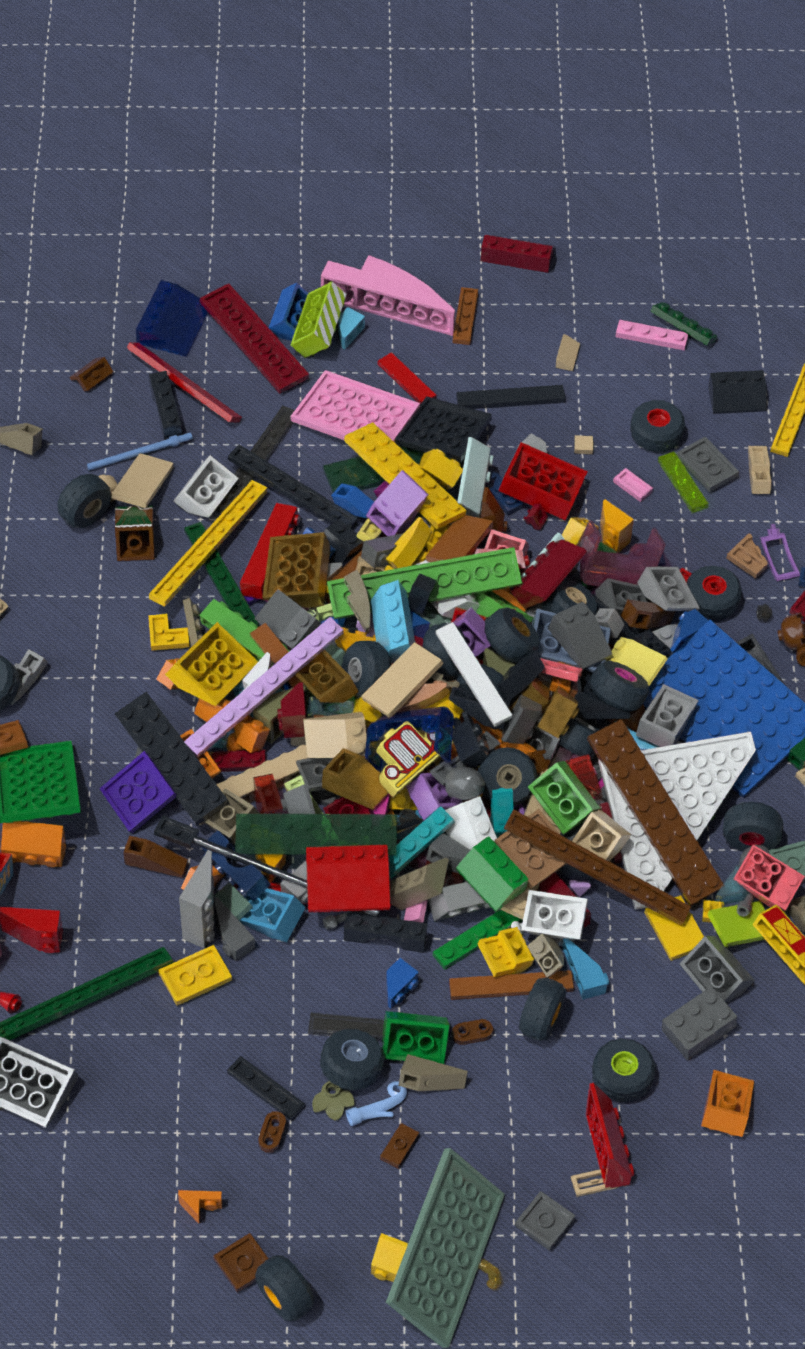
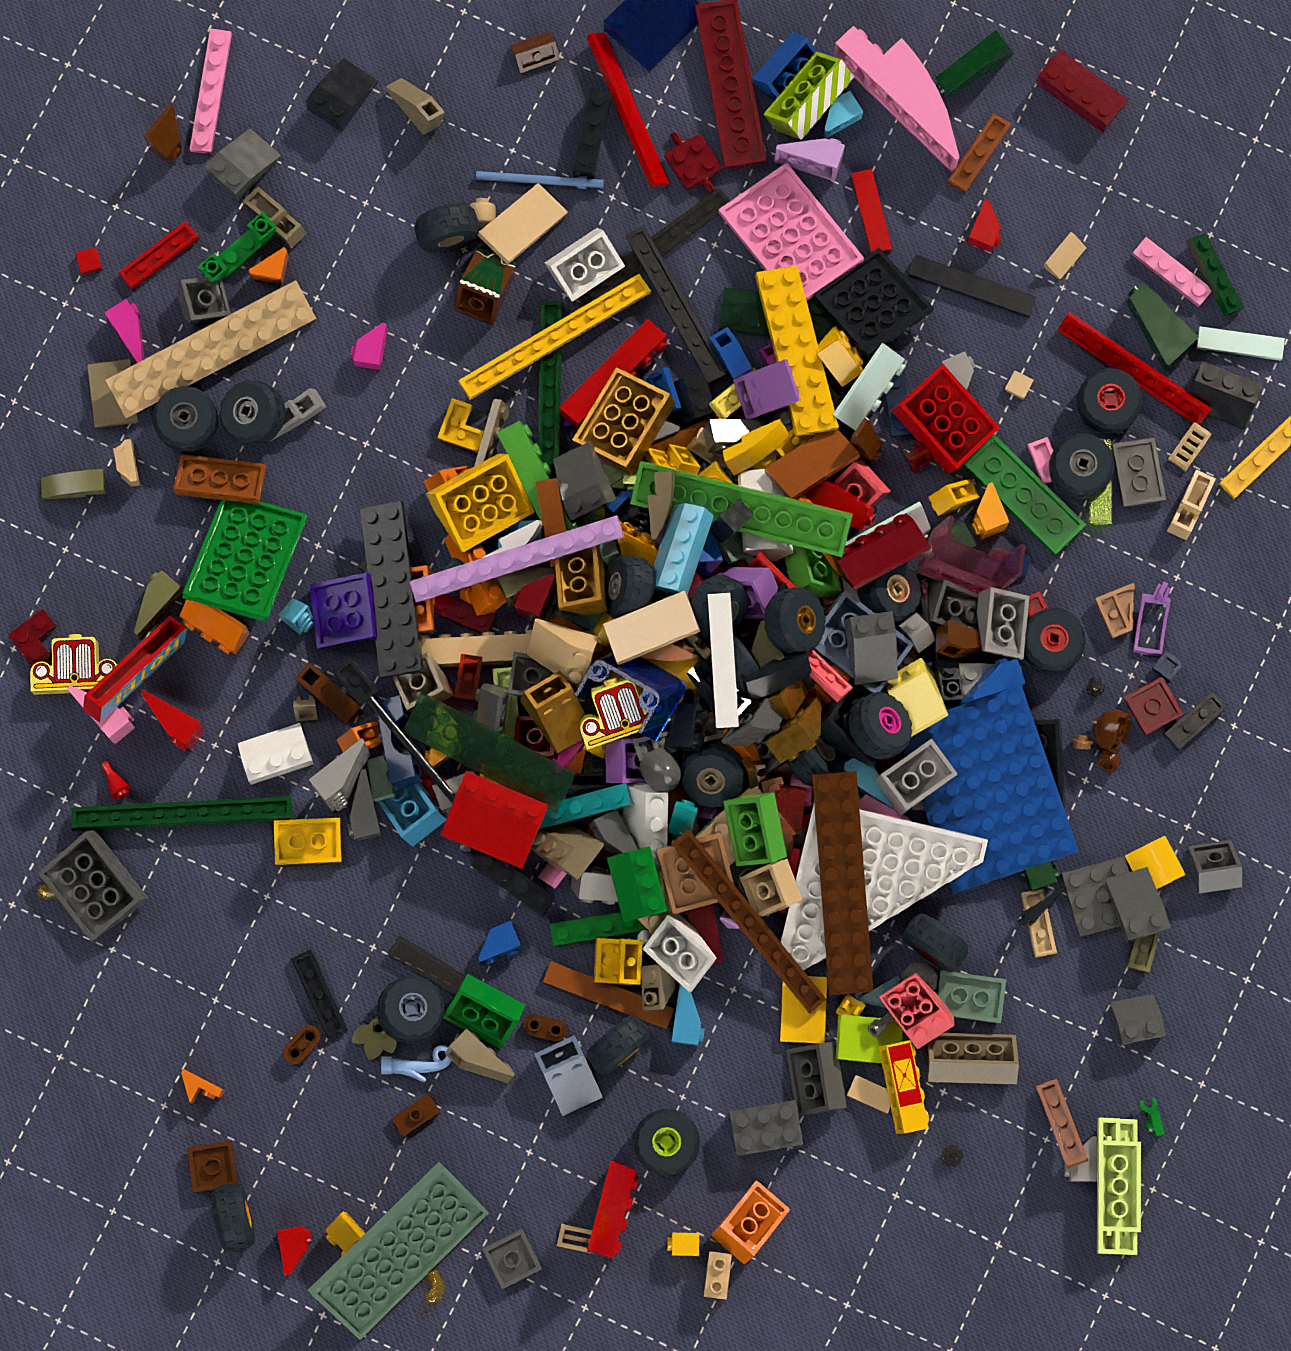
camera: 25 degrees right, 25 degrees up
(63, 608) = (370, 348): none -> dark pink slope
(101, 809) = (297, 616): none -> medium azure slope
(135, 922) = (275, 753): none -> white slope
(143, 878) = (305, 709): none -> dark tan tile
(252, 397) = (693, 162): none -> dark red plate
(343, 356) = (815, 157): none -> lavender slope
(348, 1293) = (293, 1246): none -> red slope
(432, 256) = (973, 64): none -> dark green slope
(499, 357) = (986, 229): none -> red slope
(511, 1054) = (568, 1075): none -> sand blue slope
(646, 512) = (1025, 495): none -> green plate
(663, 471) = (1081, 466): none -> black wheel
(664, 367) = (1161, 326): none -> dark green slope
(683, 1143) = (683, 1244): none -> yellow brick
(687, 404) = (1146, 376): none -> red tile
(725, 1154) = (717, 1275): none -> tan brick
(729, 359) = (1240, 343): none -> light aqua tile
(735, 423) = (1200, 431): none -> tan slope
(767, 966) = (869, 1094): none -> tan tile
(777, 652) = (1082, 742): none -> medium nougat plate

